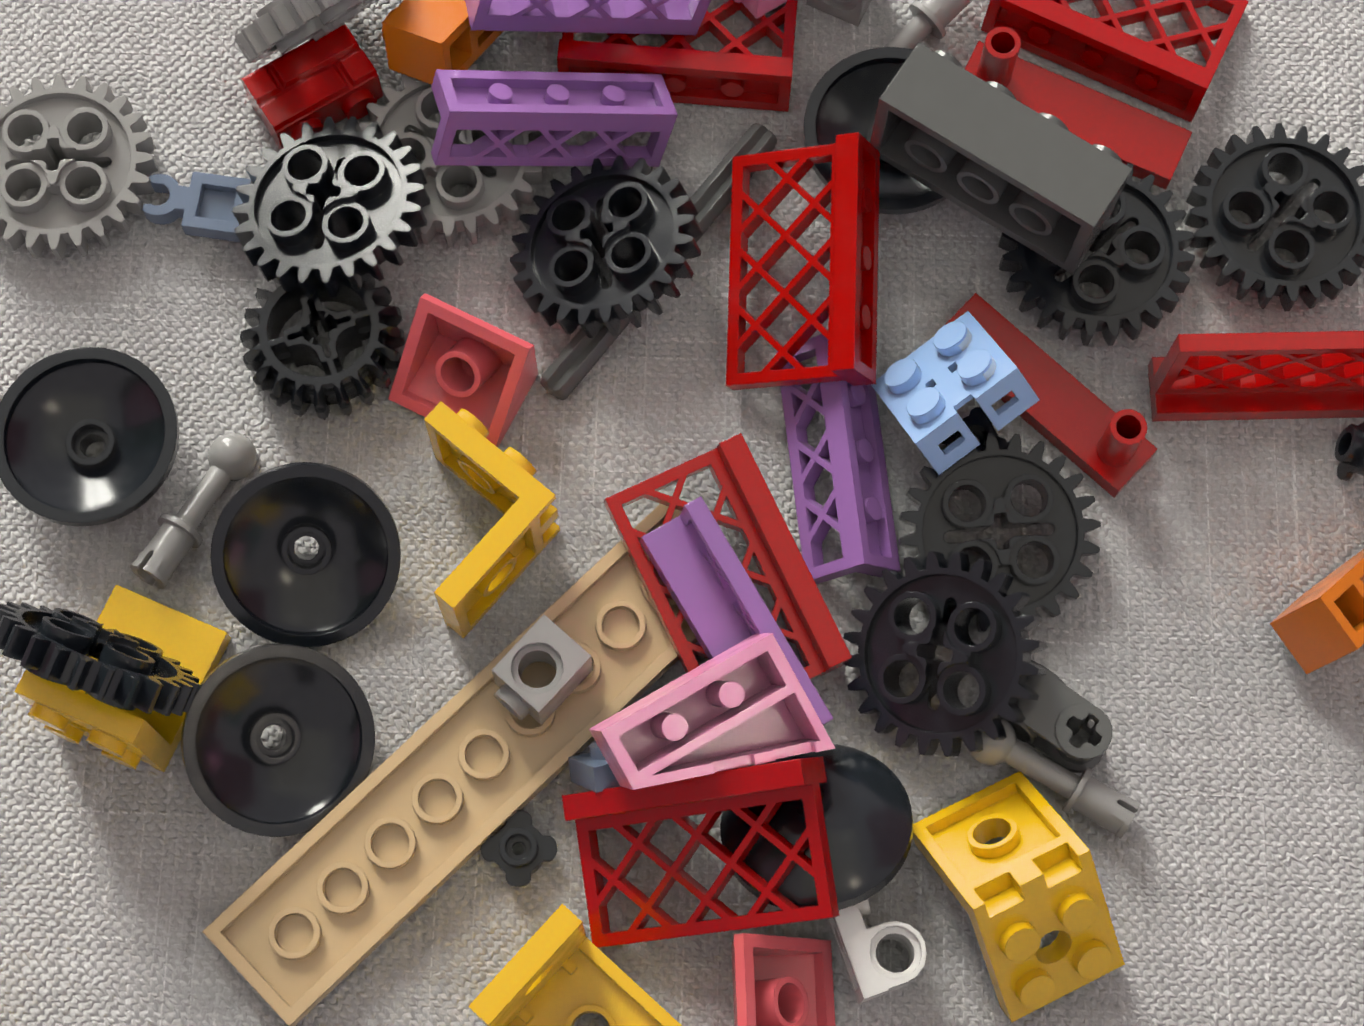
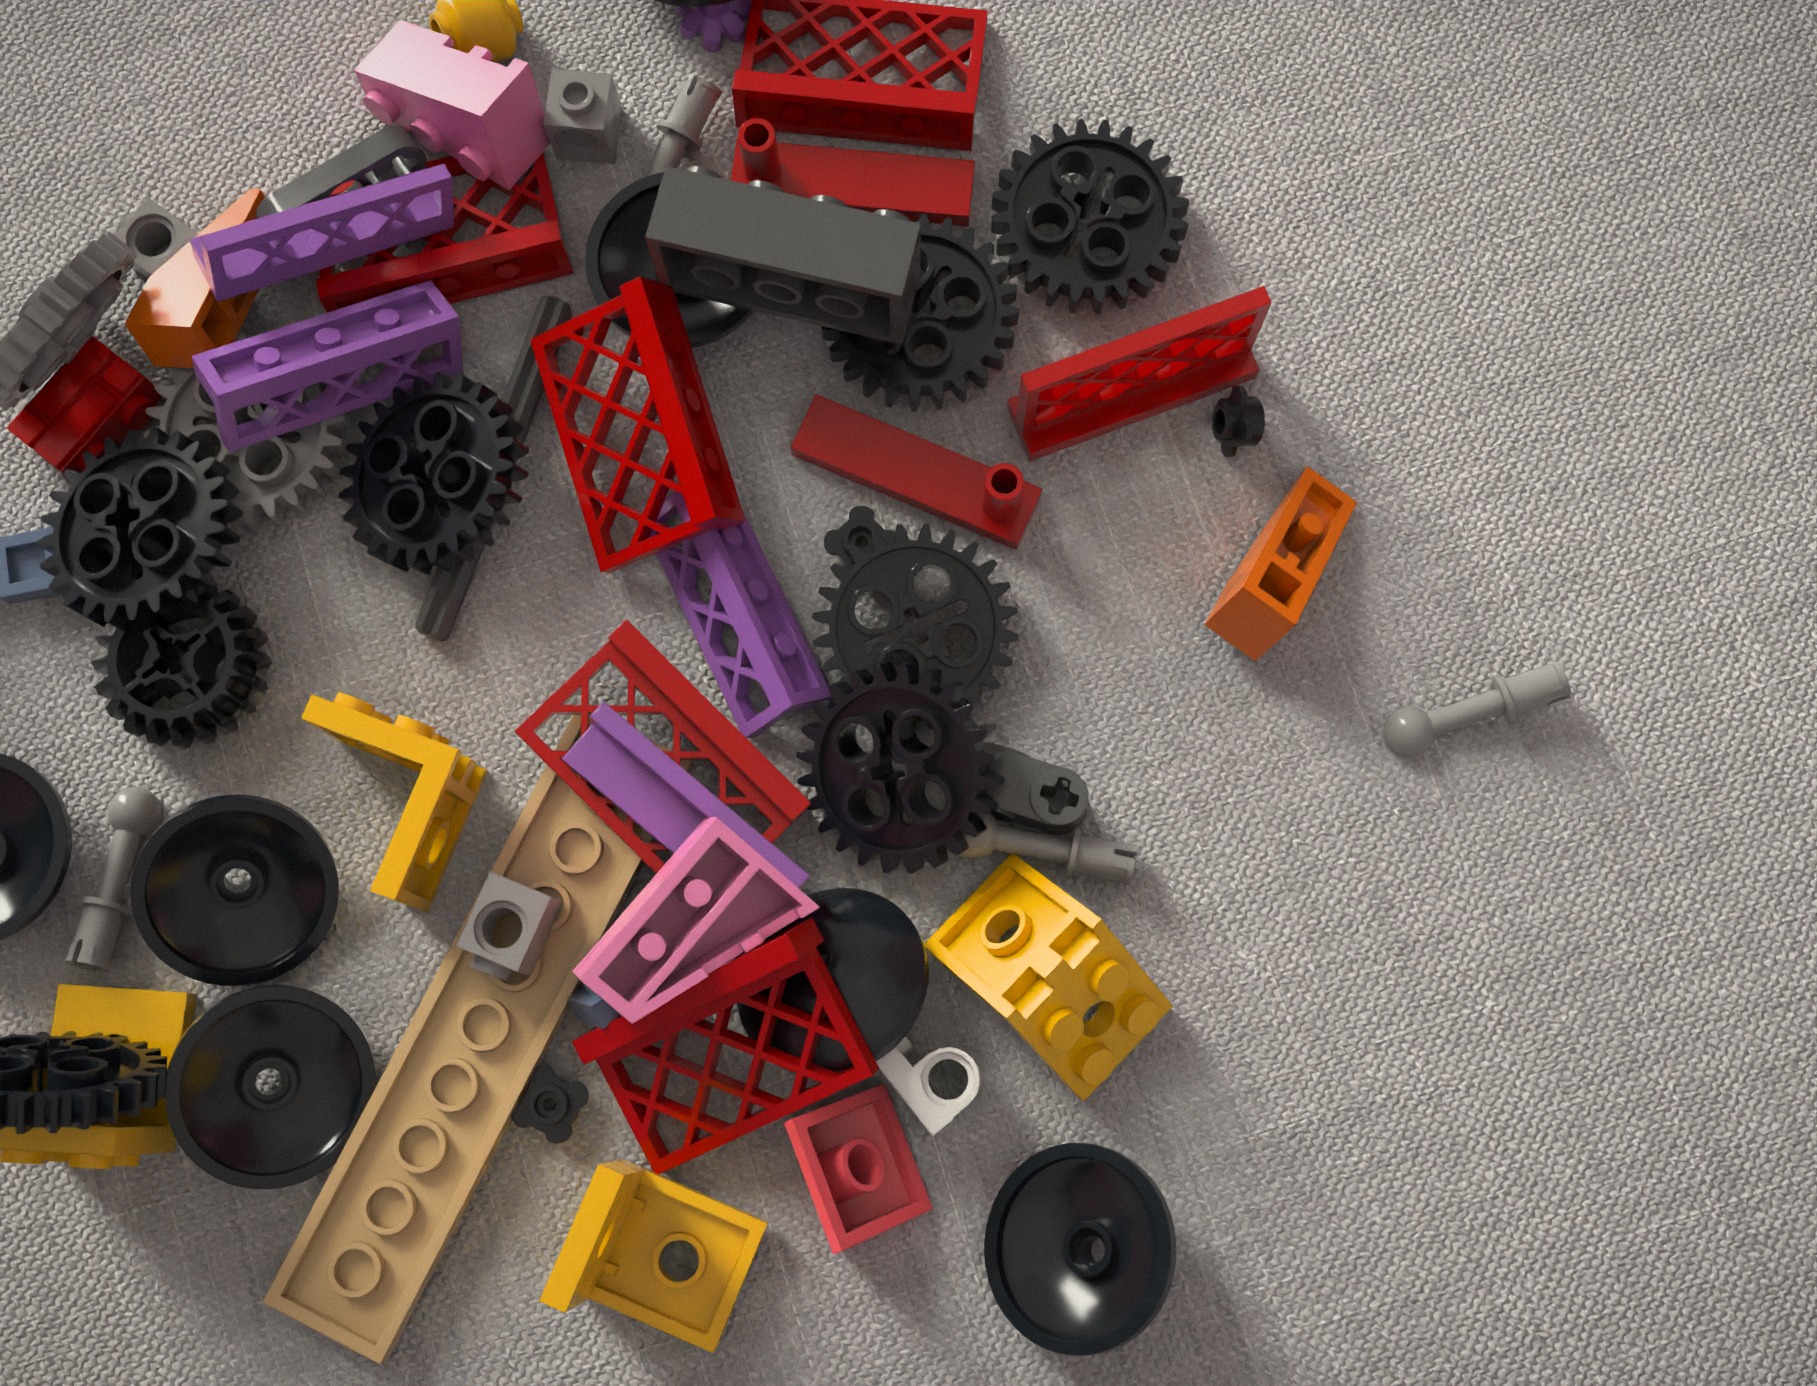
camera: 15 degrees left, 5 degrees up
(464, 366) = (334, 646): coral slope -> none
(943, 377) = (807, 493): light blue piece -> none

